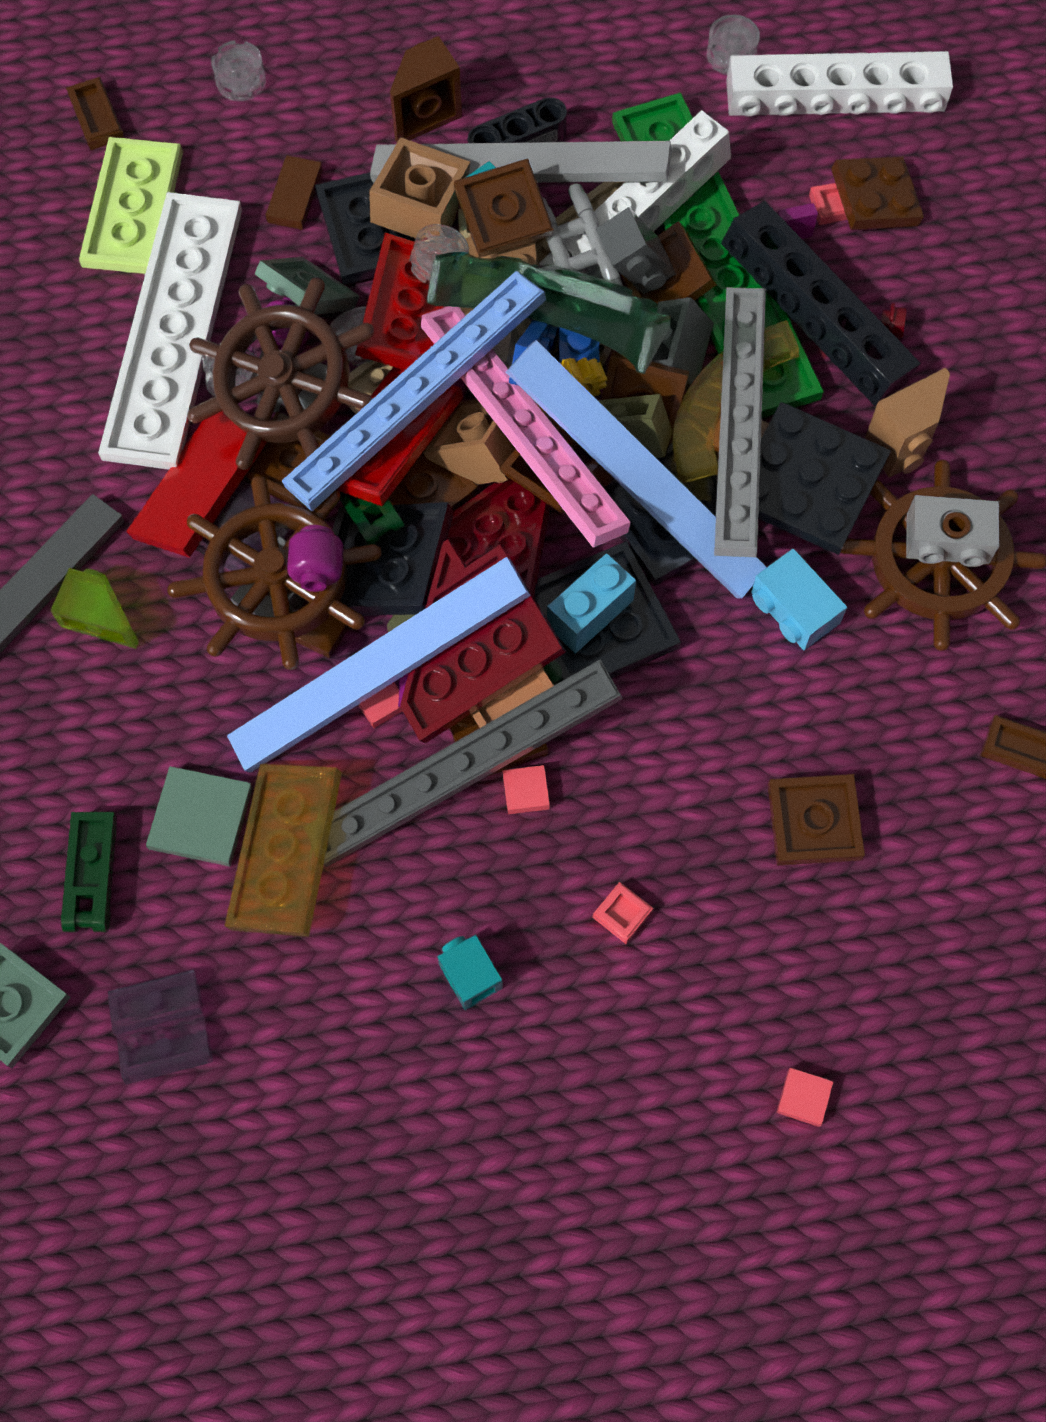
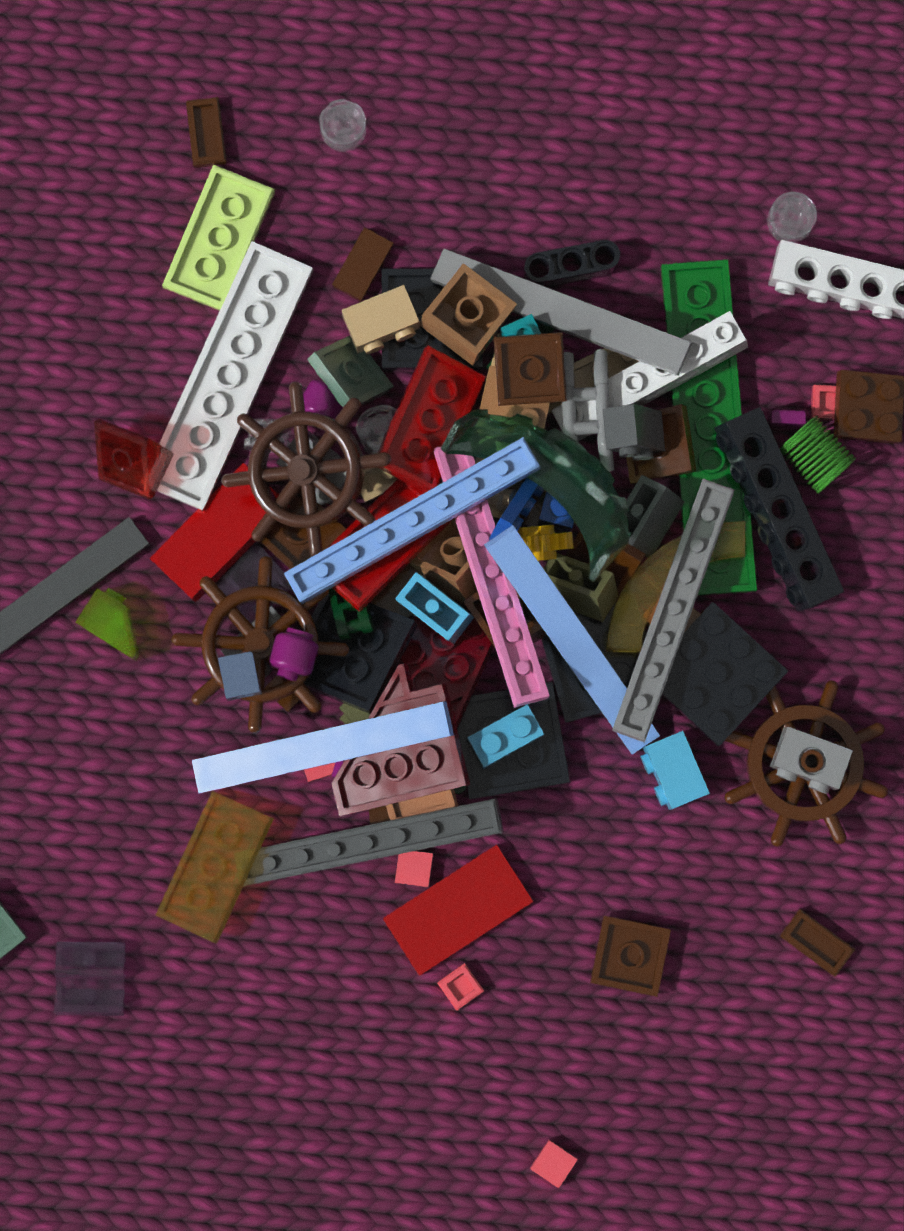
camera: 10 degrees right, 15 degrees up
(77, 423) = (130, 459): none -> clear red slope
(89, 871) = (62, 842): dark green plate -> none
(199, 816) = (155, 820): sand green tile -> none
(257, 597) = (239, 676): none -> sand blue panel
(326, 222) = (381, 320): none -> tan brick
(425, 90) = (501, 202): reddish brown slope -> none
(427, 248) = (467, 383): clear wheel -> none
(468, 483) = (434, 607): none -> medium azure brick
(469, 970) = (330, 1002): teal brick -> none
(592, 824) = (457, 910): none -> red tile
(869, 244) = (821, 446): none -> bright green piece
(894, 320) = (839, 537): dark red plate -> none
(908, 422) = (814, 647): medium nougat slope -> none

